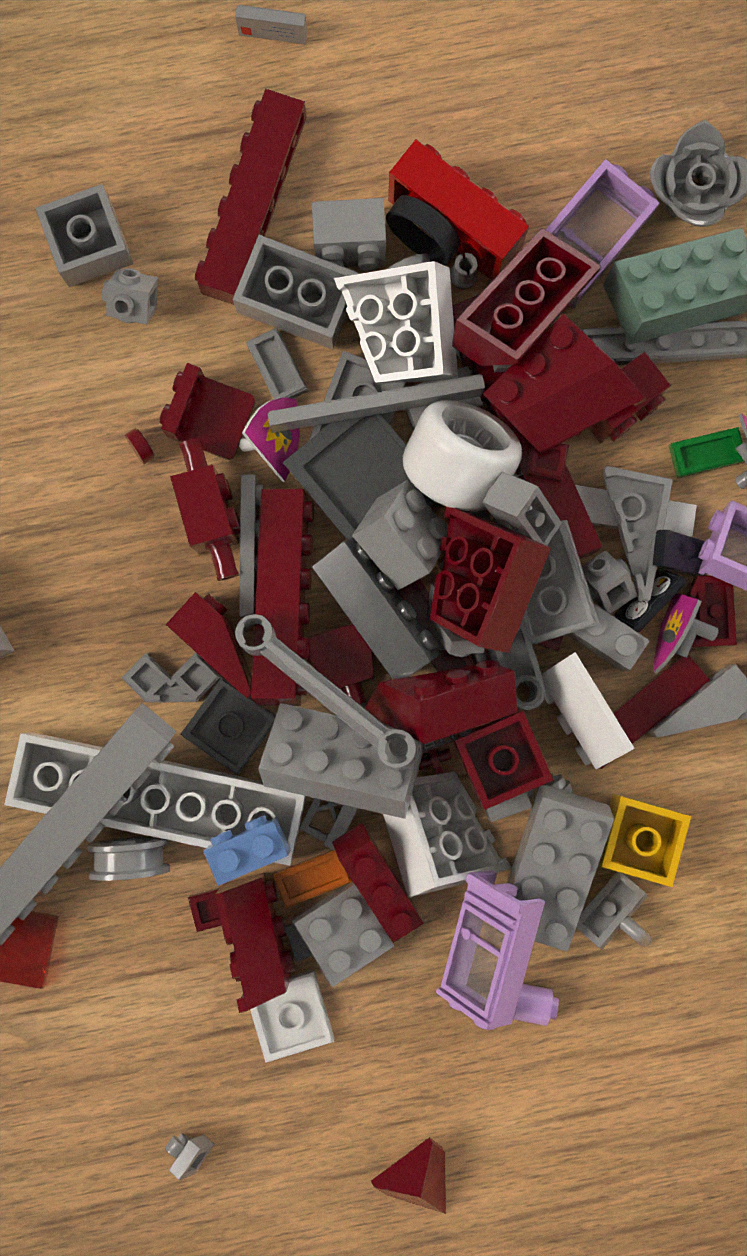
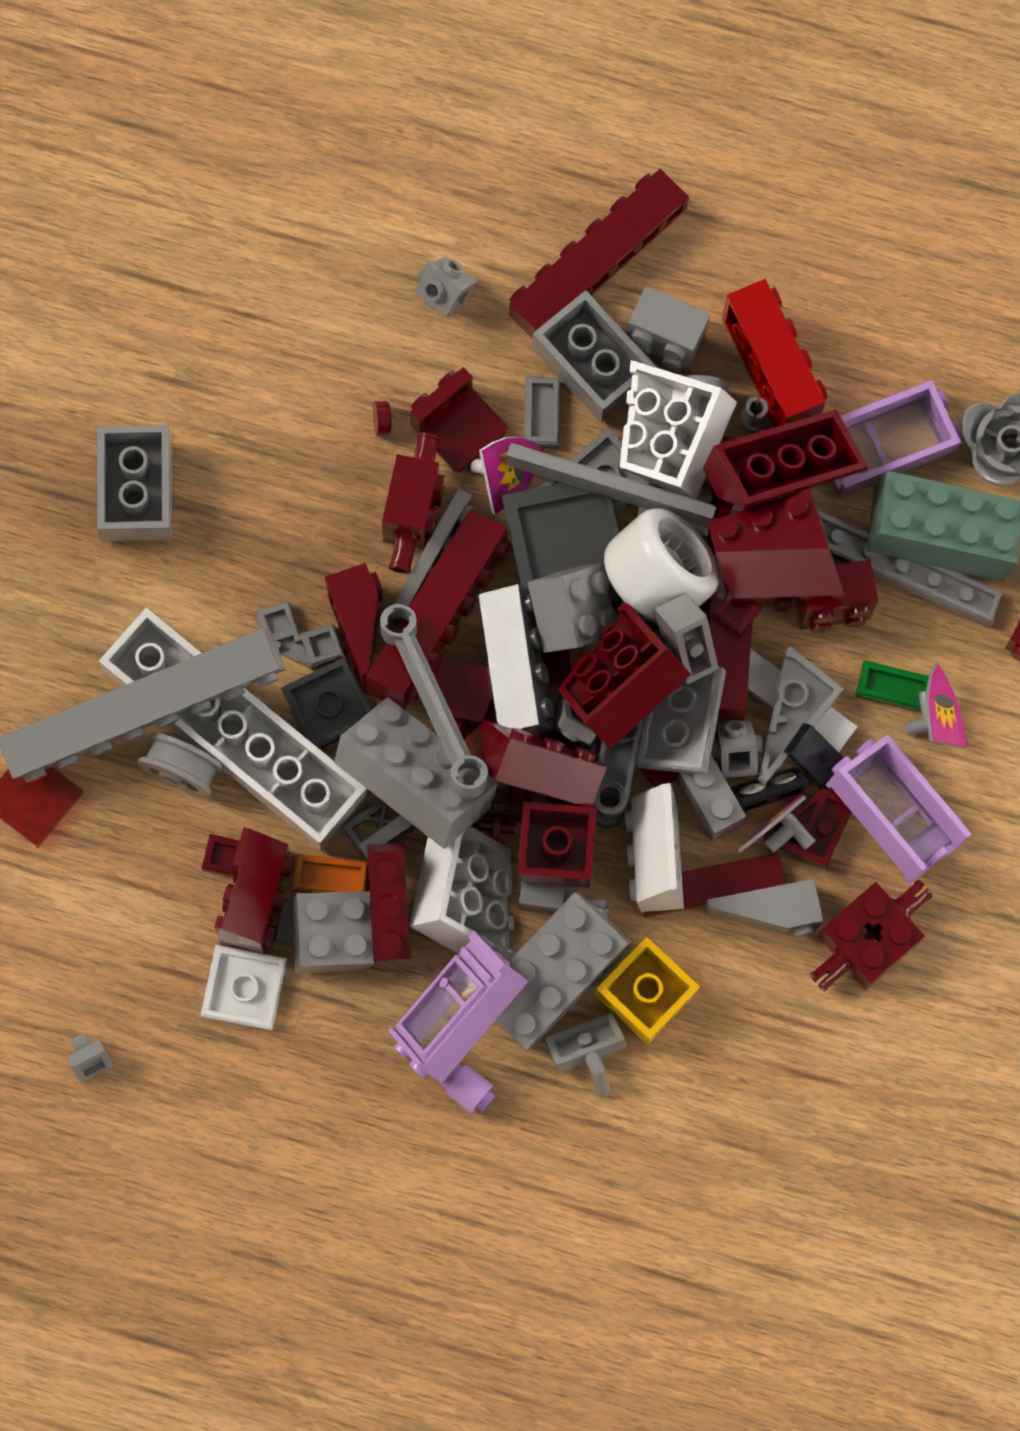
camera: 25 degrees right, 10 degrees down
(84, 235) = (432, 214): light grey brick -> none
(246, 851) = (291, 803): medium blue brick -> none
(271, 24) = (697, 114): light grey tile -> none
(410, 210) = (734, 359): black tyre -> none
(417, 1177) = (281, 1189): dark red slope -> none

